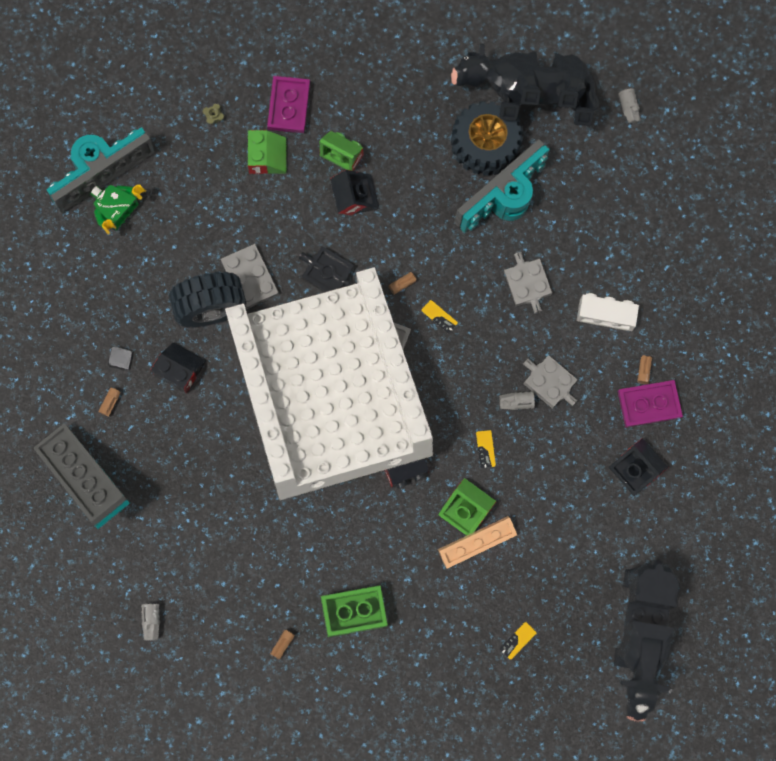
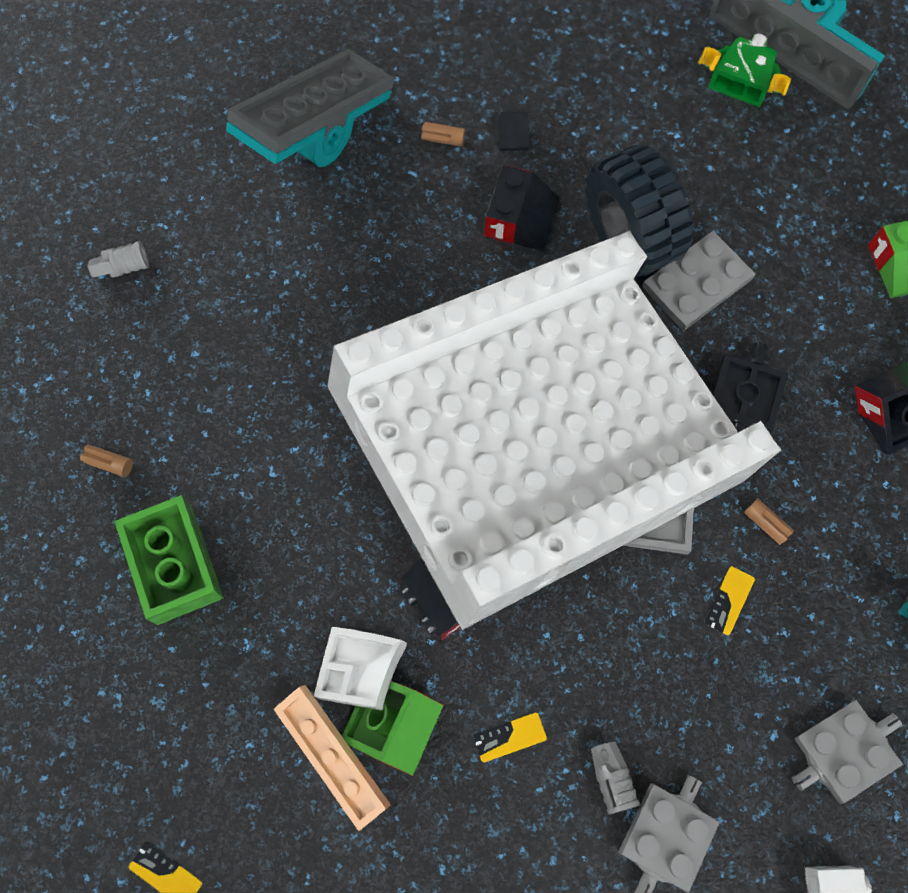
camera: 85 degrees right, 5 degrees down
(435, 519) = (358, 667): none -> white plate

